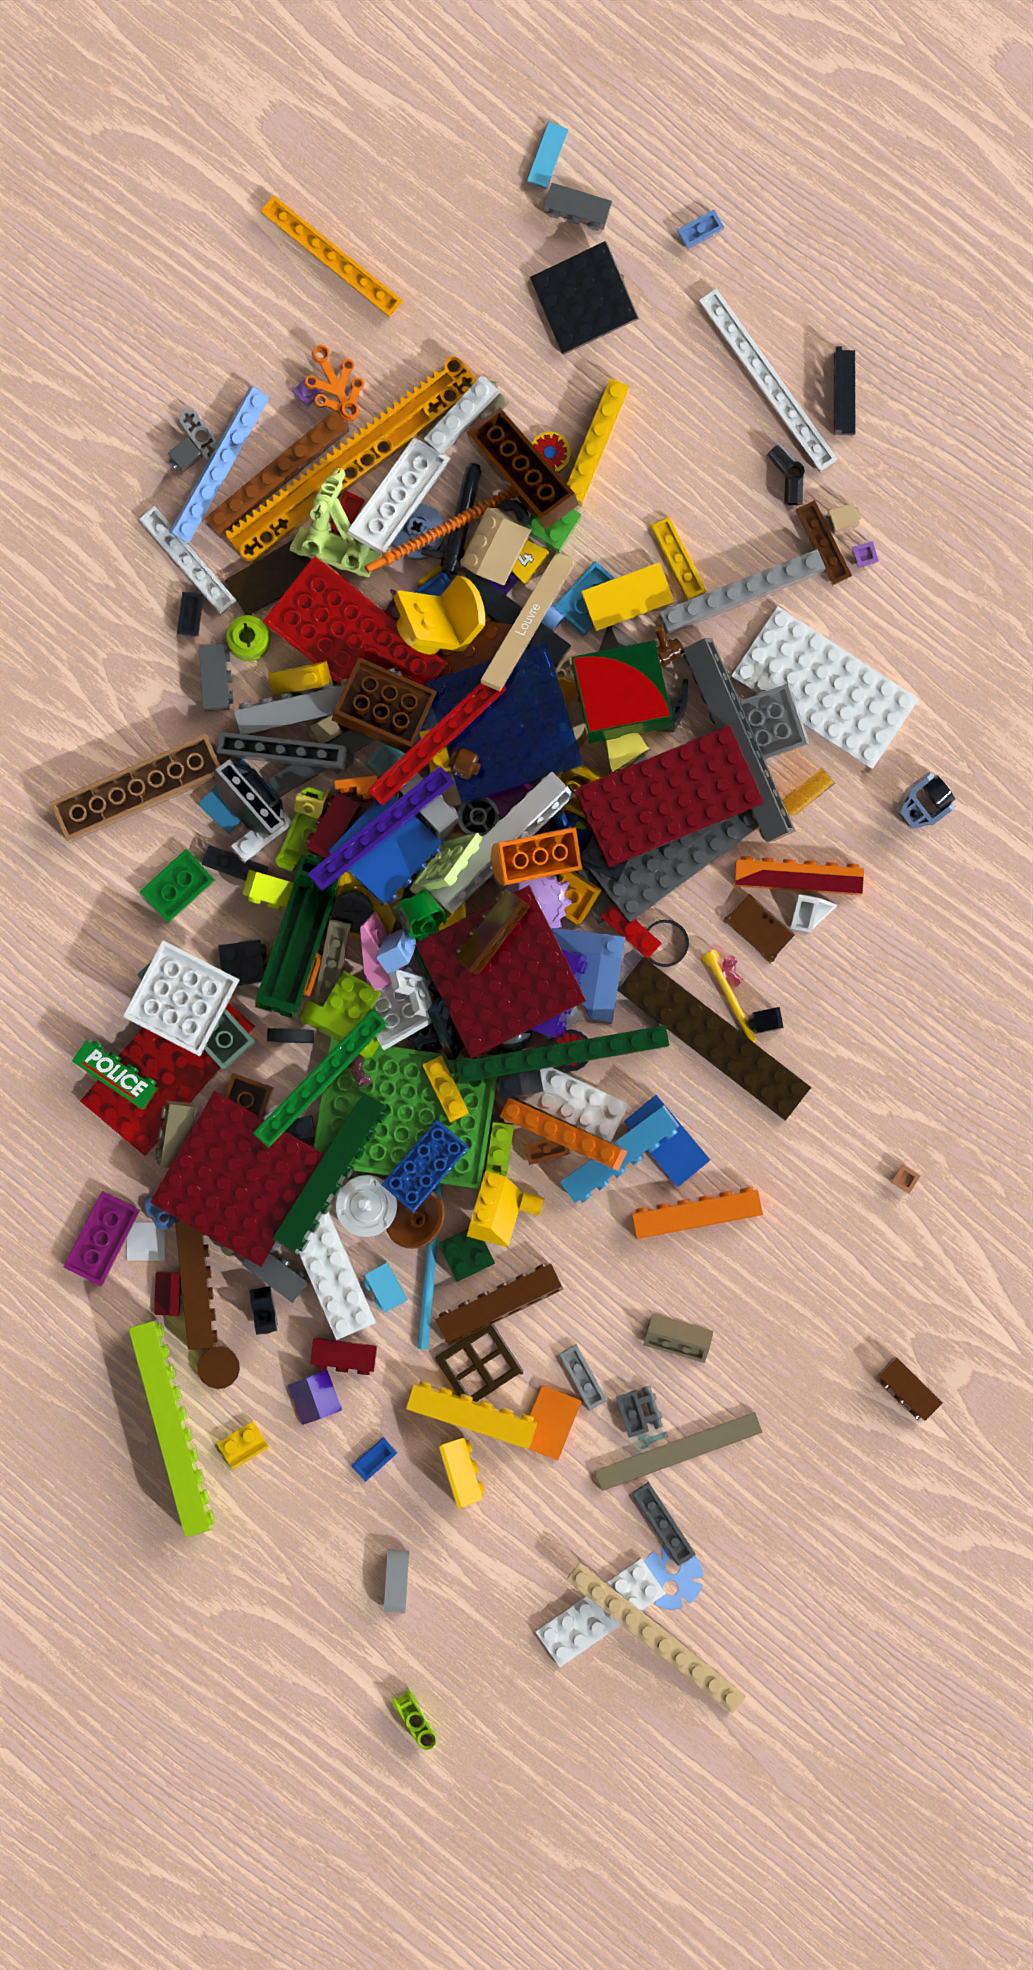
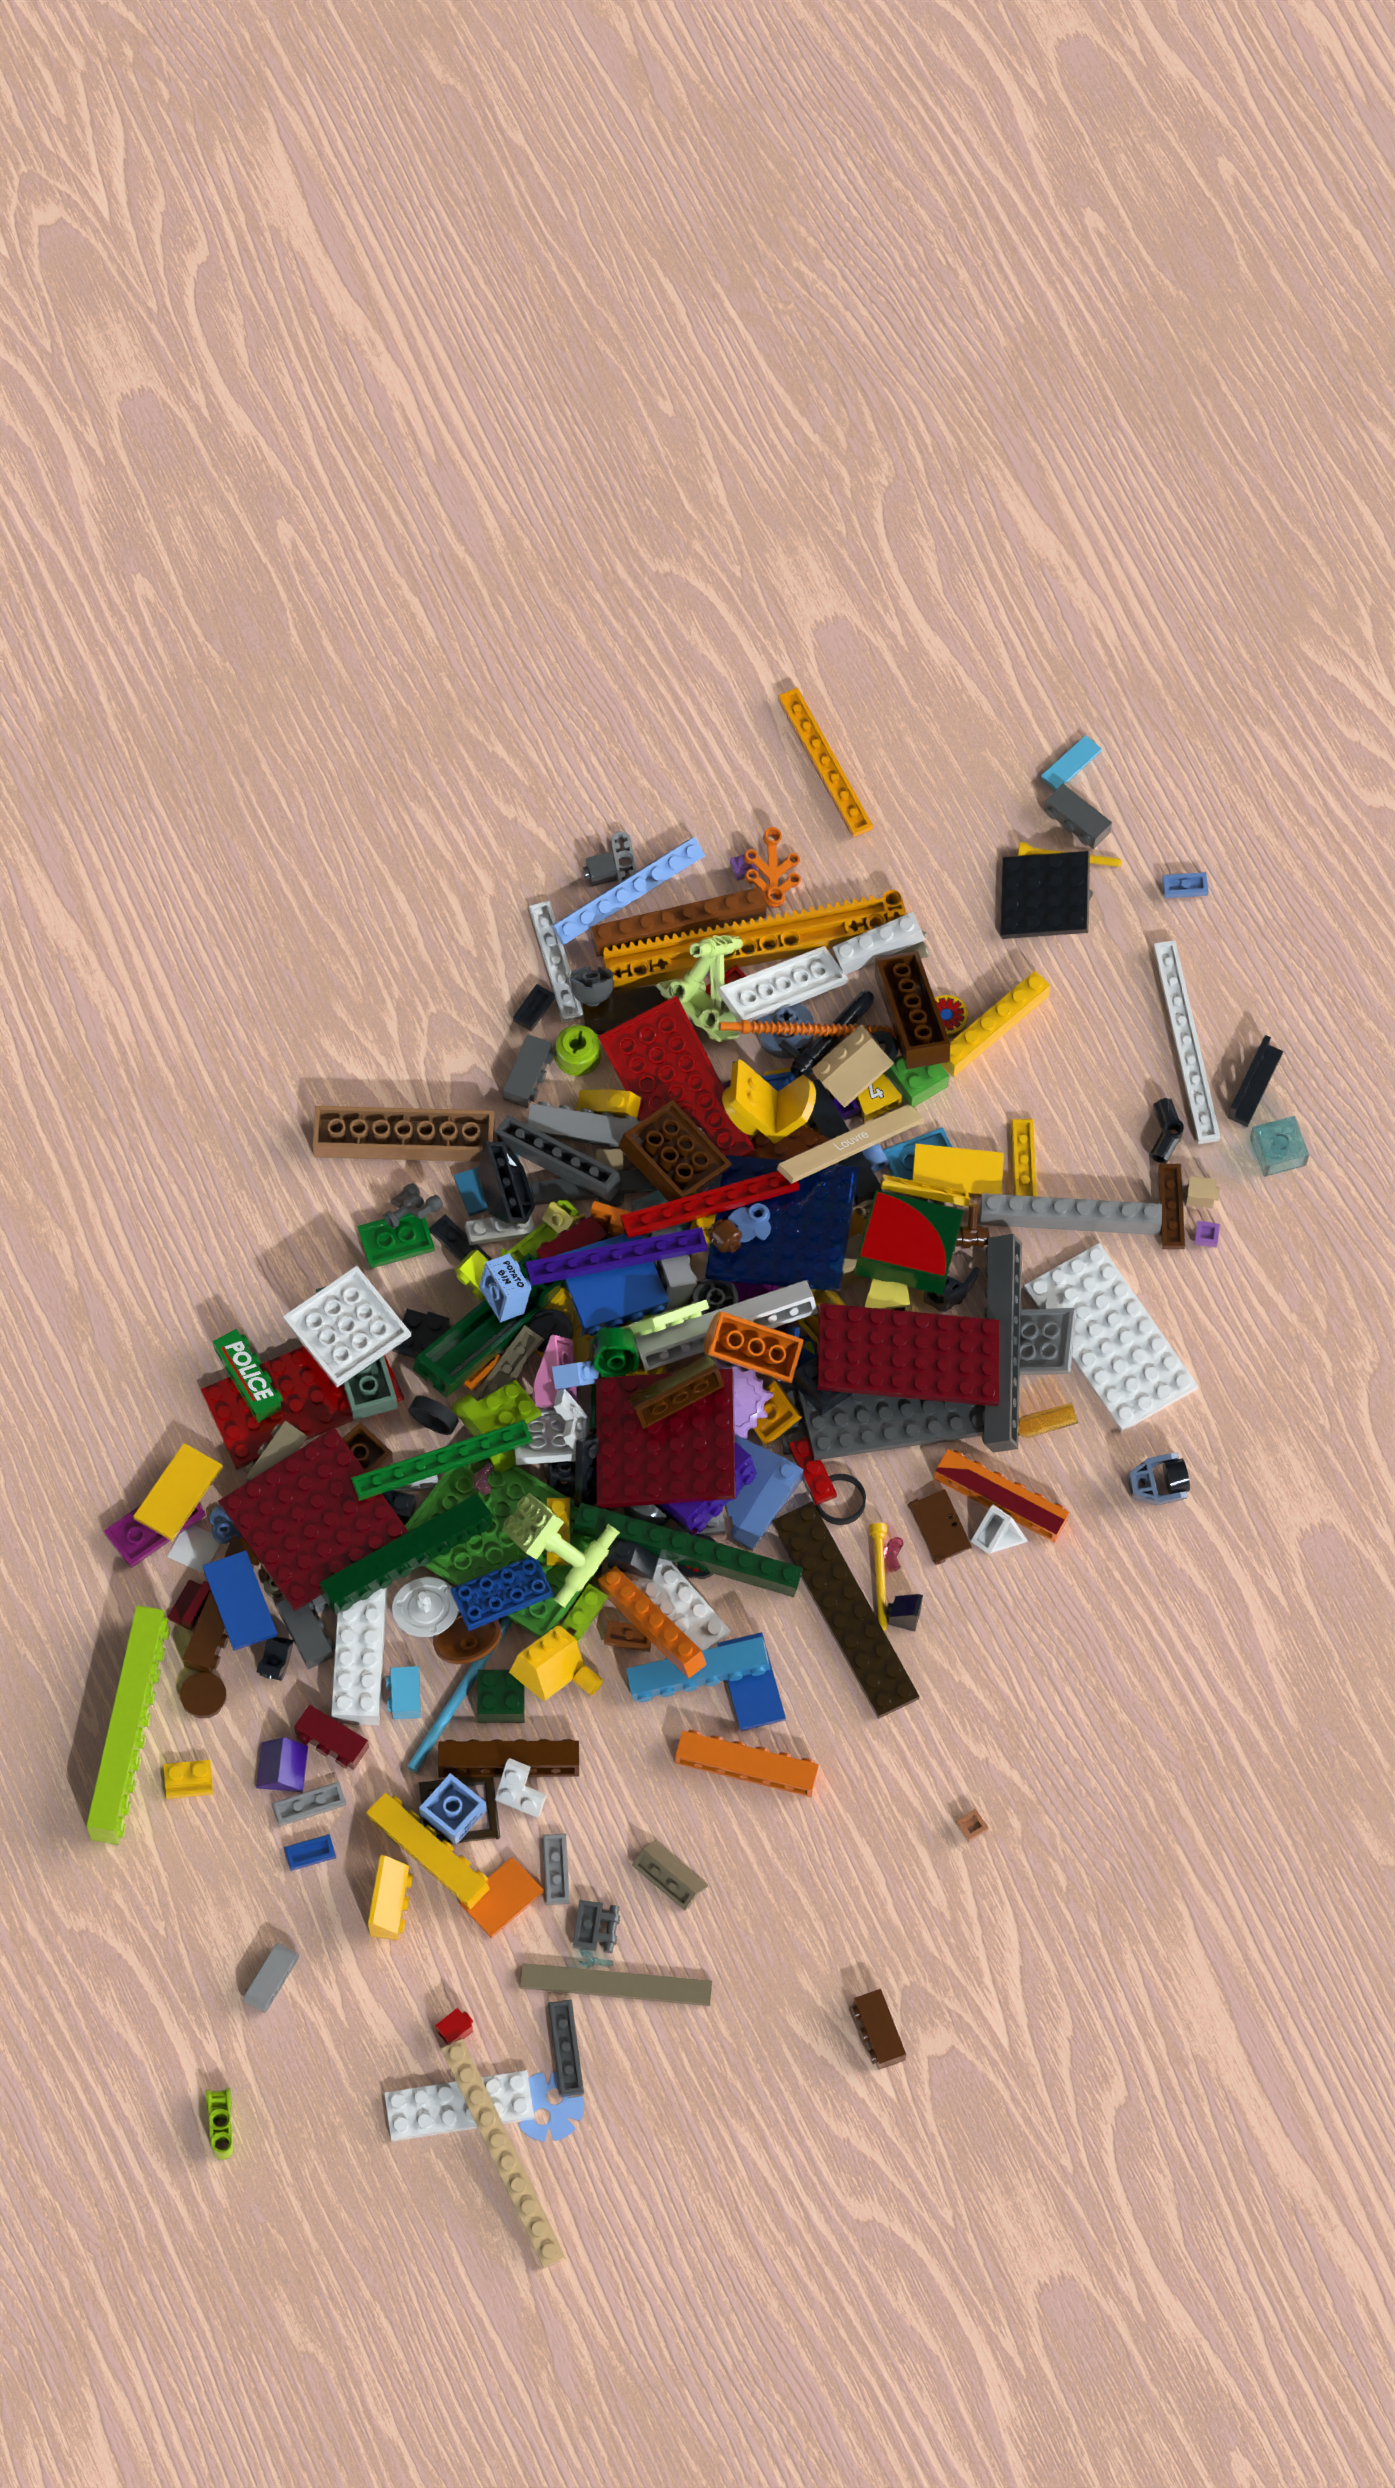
camera: 25 degrees right, 20 degrees down
(109, 1204) = (178, 1492): none -> yellow tile
(177, 852) = (411, 1202): none -> dark grey piece
(210, 1279) = (239, 1600): none -> blue tile
(232, 573) = (591, 986): none -> dark grey cylinder
(299, 899) = (505, 1287): none -> light blue brick
(353, 1418) = (309, 1804): none -> light grey tile
(436, 1108) = (536, 1528): none -> yellowish green plate
(476, 1372) = (452, 1809): none -> light blue brick
(480, 742) = (749, 1224): none -> medium blue plate
(518, 1330) = (515, 1793): none -> white plate
(547, 261) = (1025, 849): none -> yellow piece
(566, 1551) = (454, 2026): none -> red brick
(609, 631) = (924, 1190): none -> yellow tile
(891, 443) = (1279, 1146): none -> clear light blue brick

